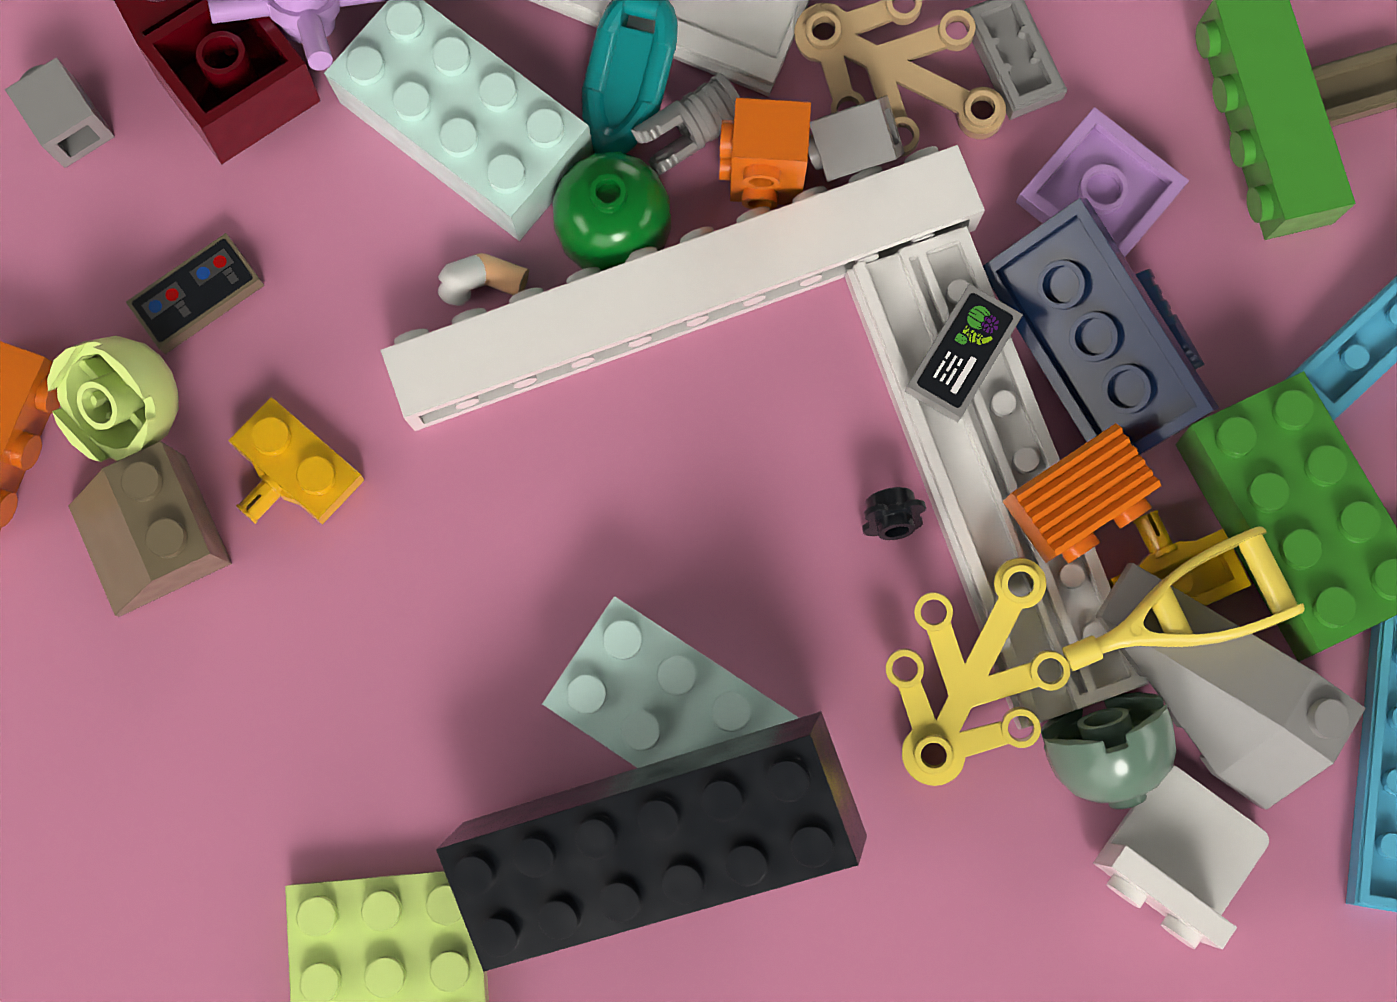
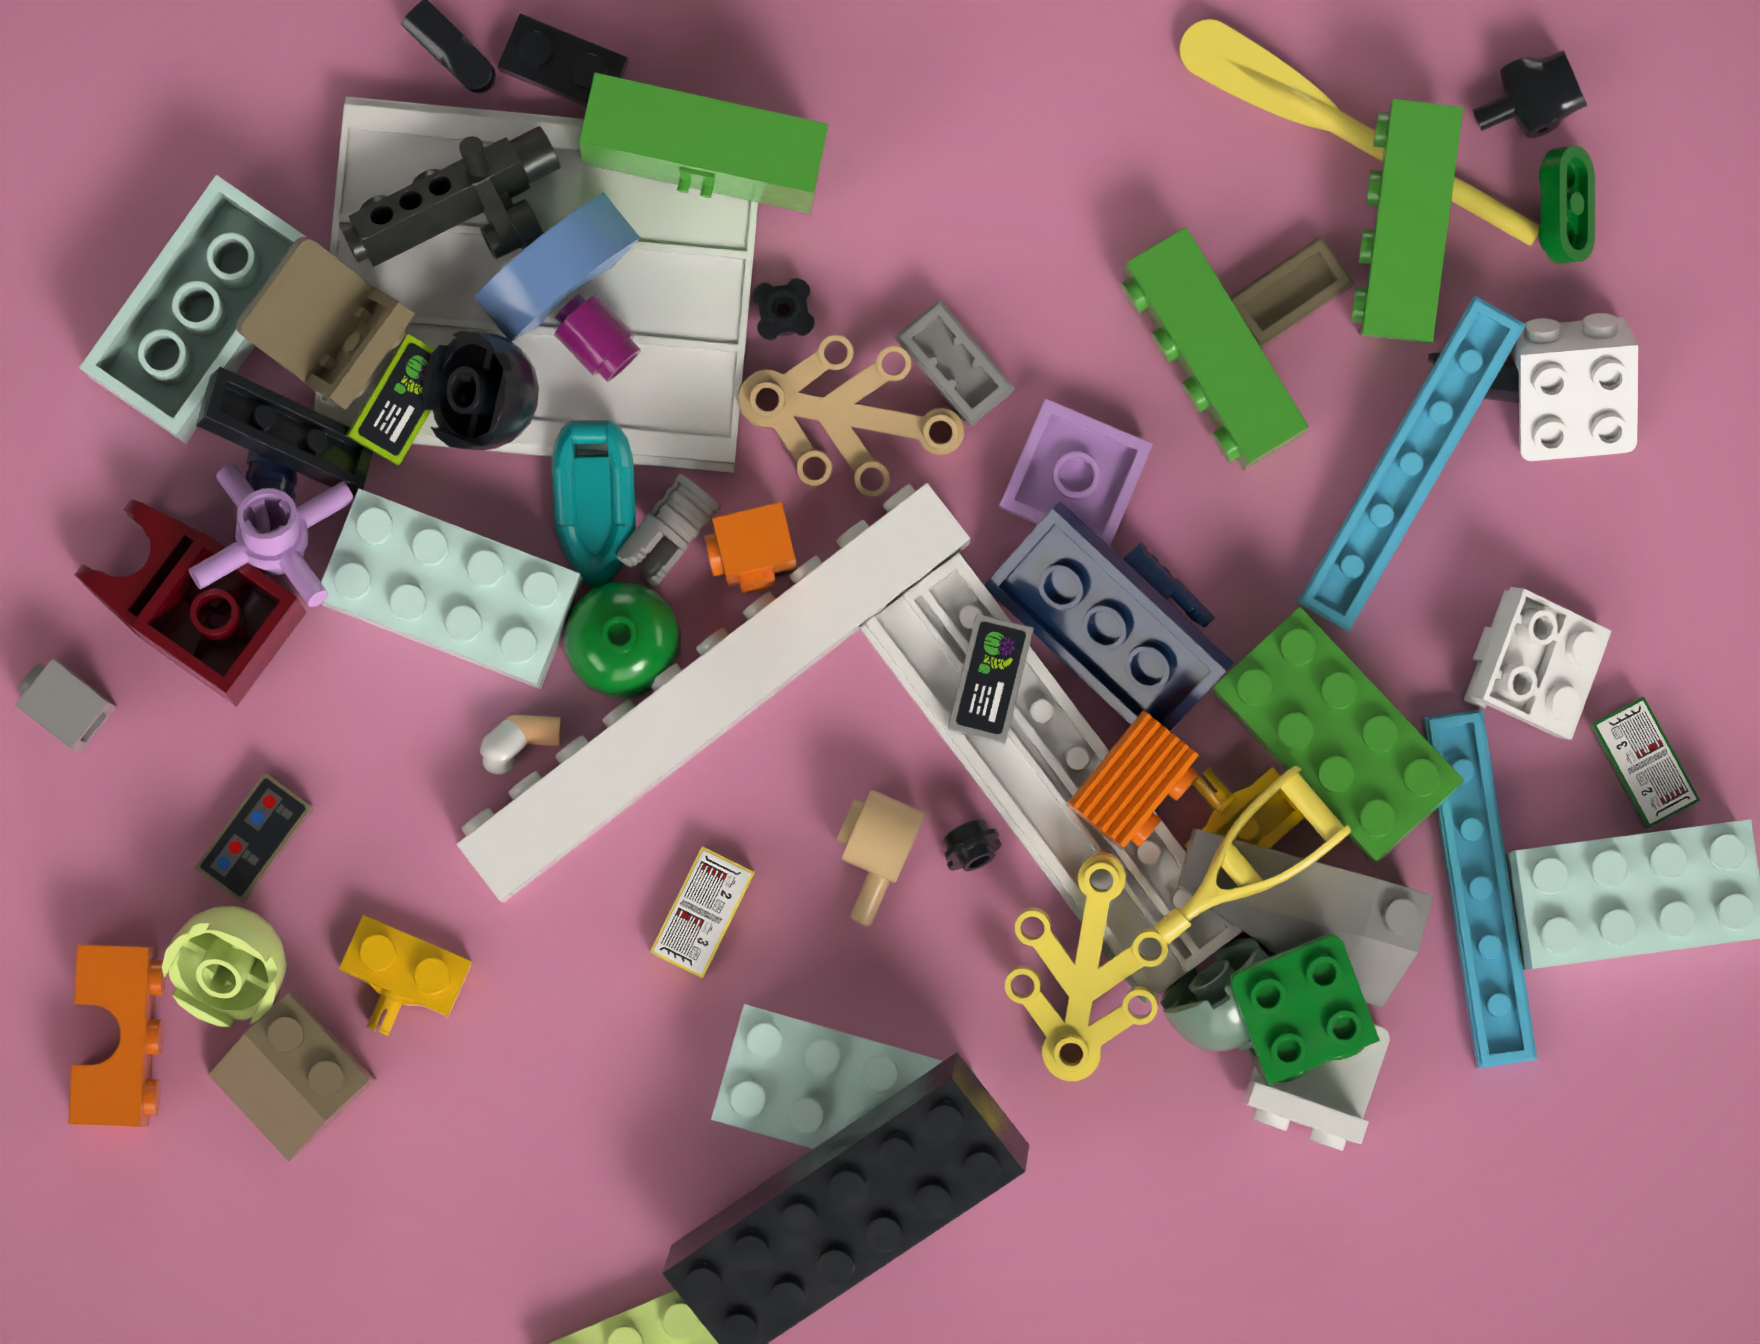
camera: 25 degrees left, 5 degrees up
(604, 498) = (702, 912): none -> tile
(803, 479) = (878, 841): none -> tan piece
(855, 139) = (830, 503): light grey brick -> none
(1201, 784) = (1302, 1009): none -> green bracket

